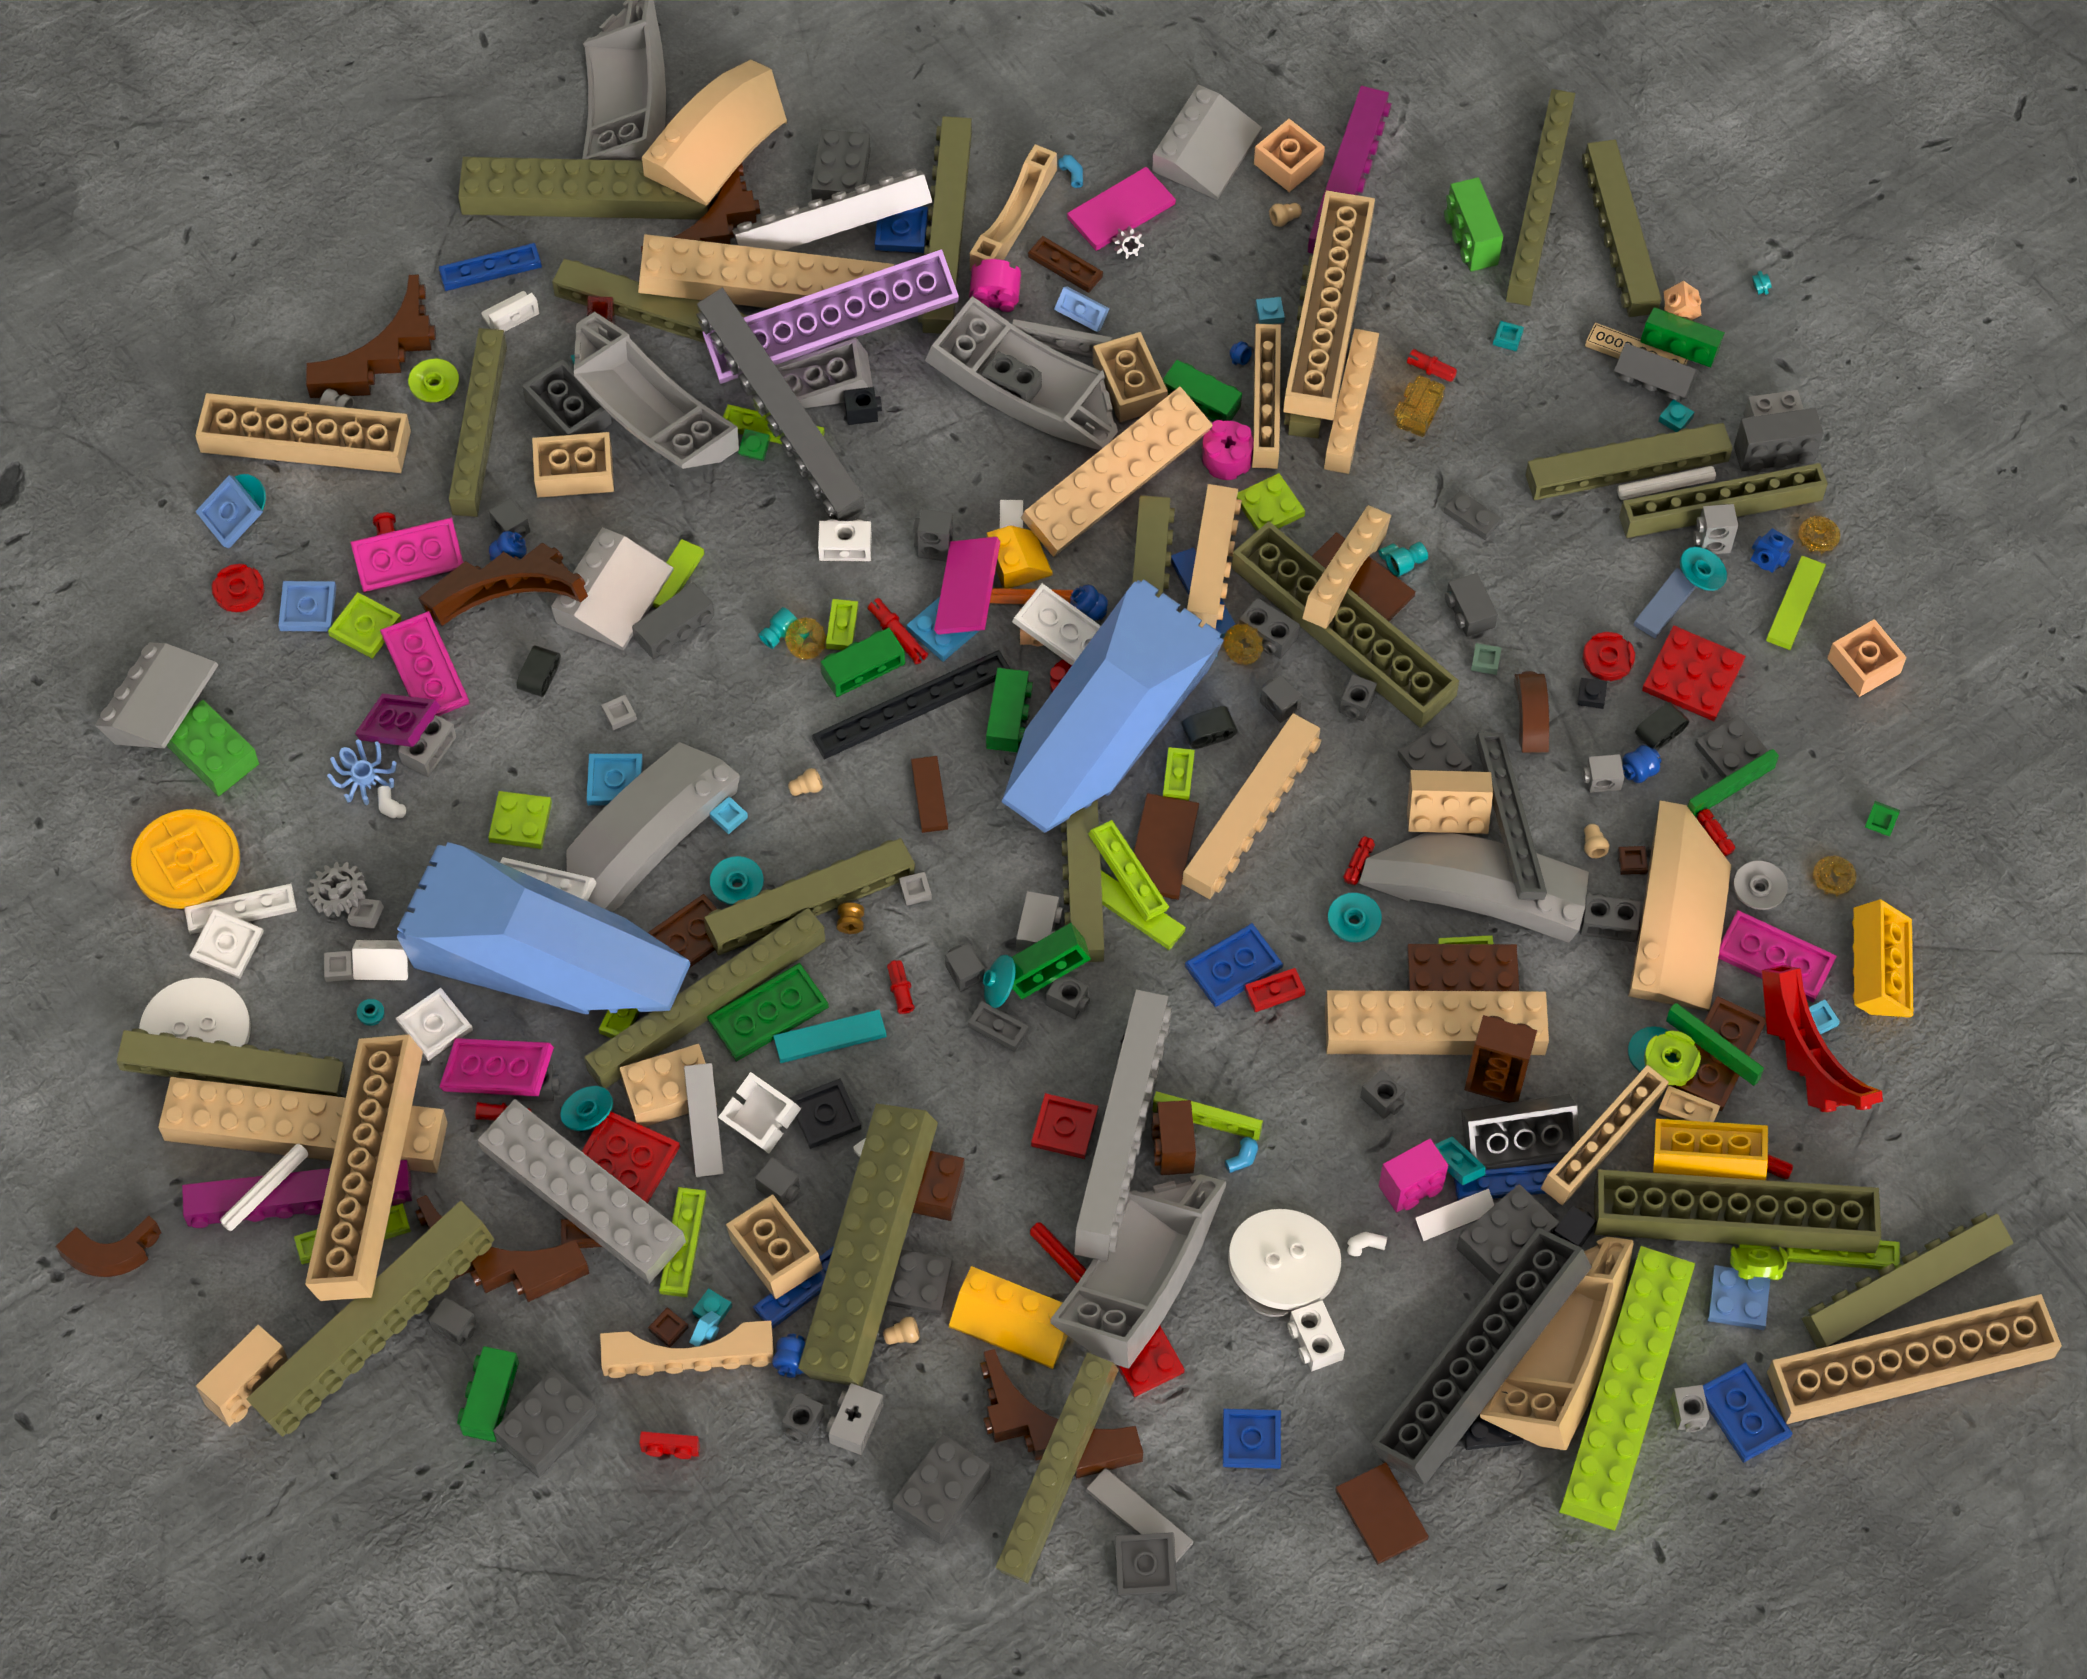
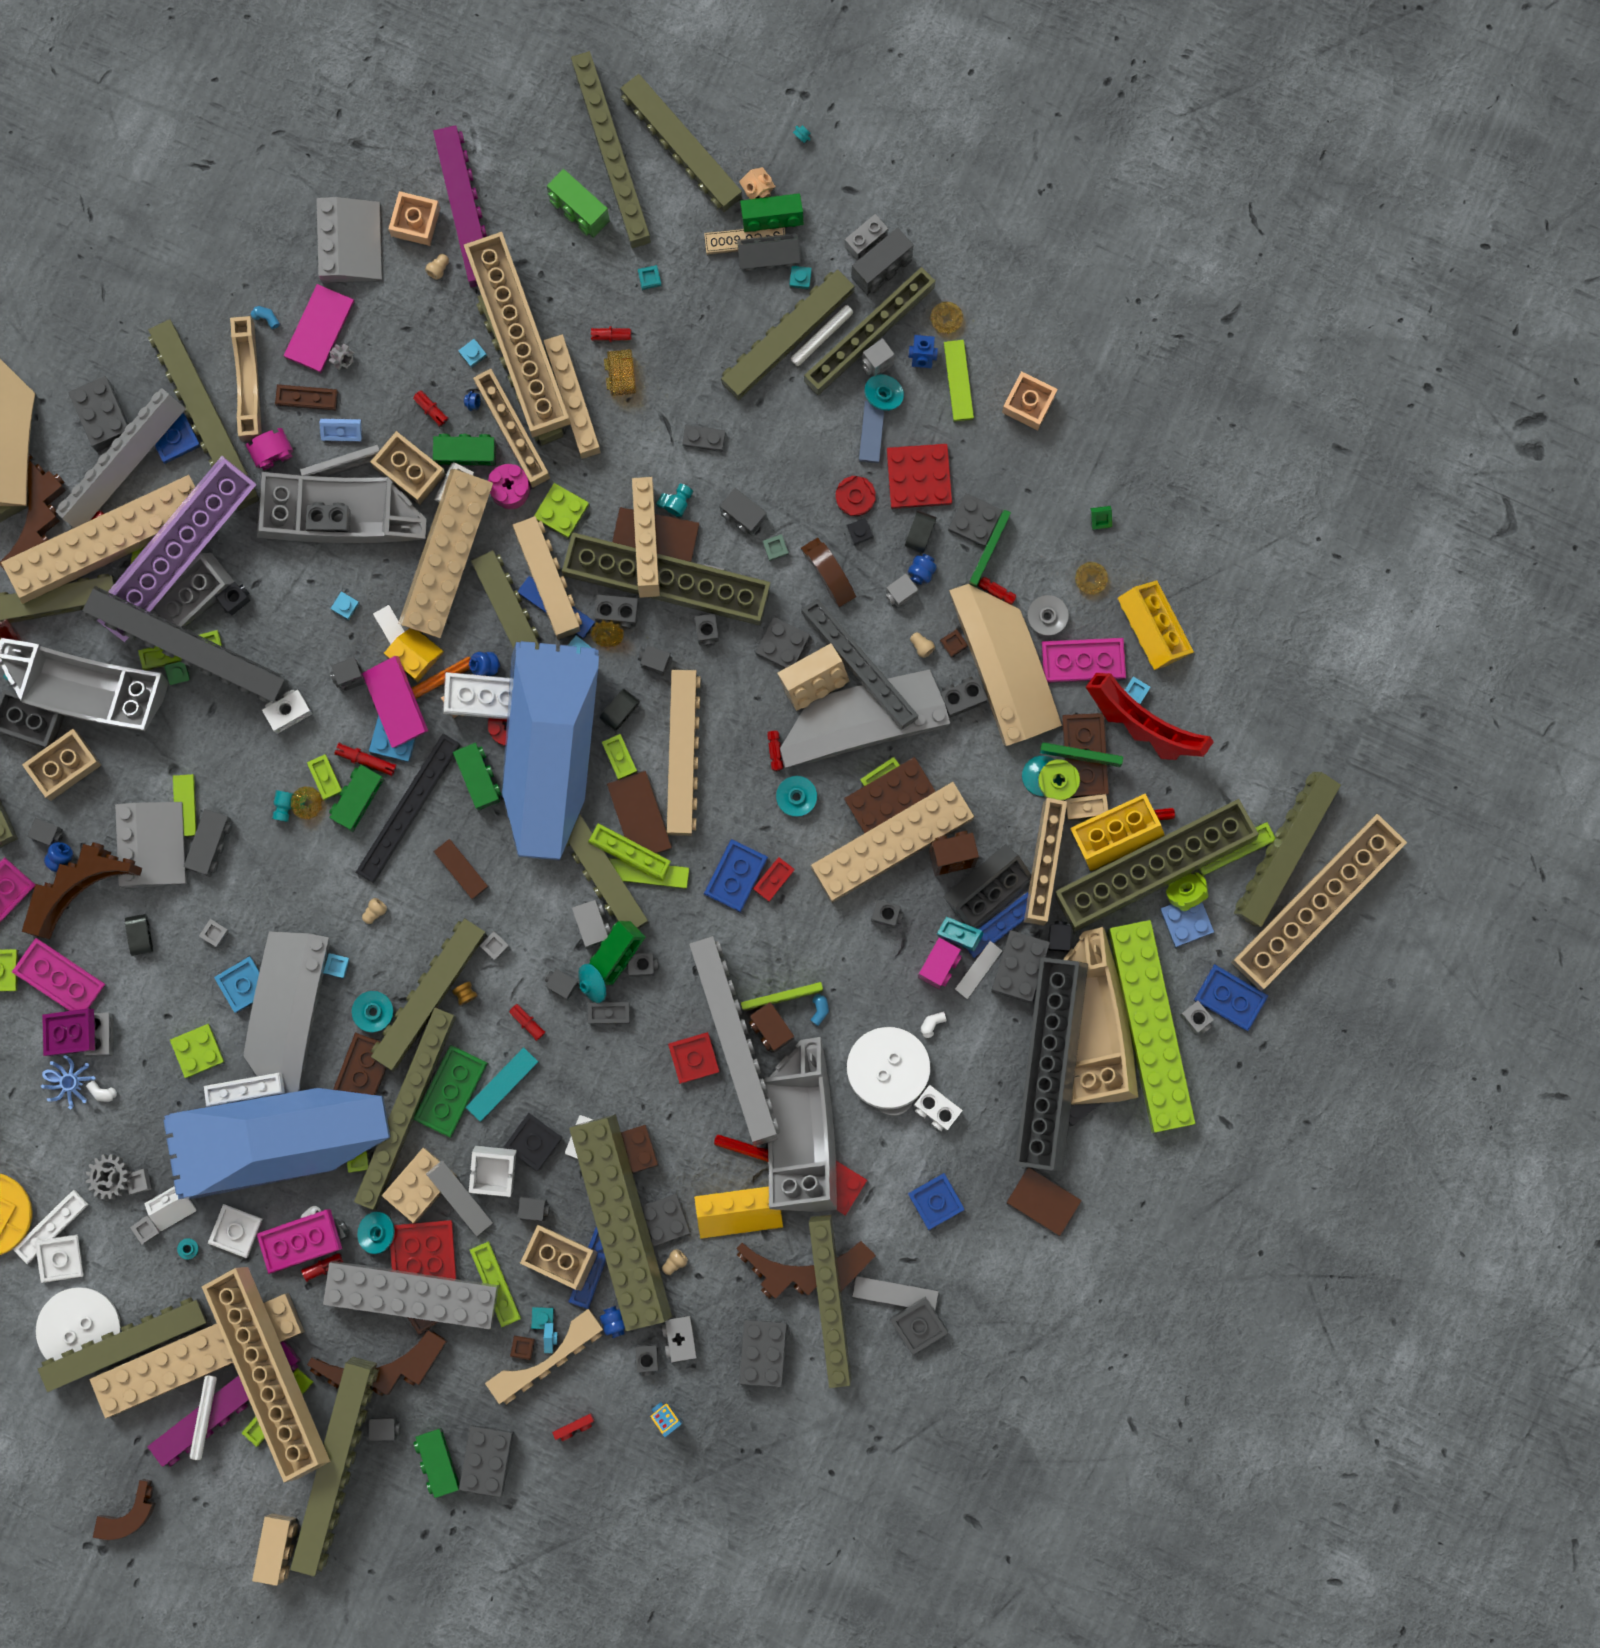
camera: 30 degrees left, 20 degrees up
(781, 1497) = (665, 1418): none -> dark azure slope
(975, 475) = (345, 605): none -> medium azure plate
(1191, 338) = (430, 408): none -> red axle

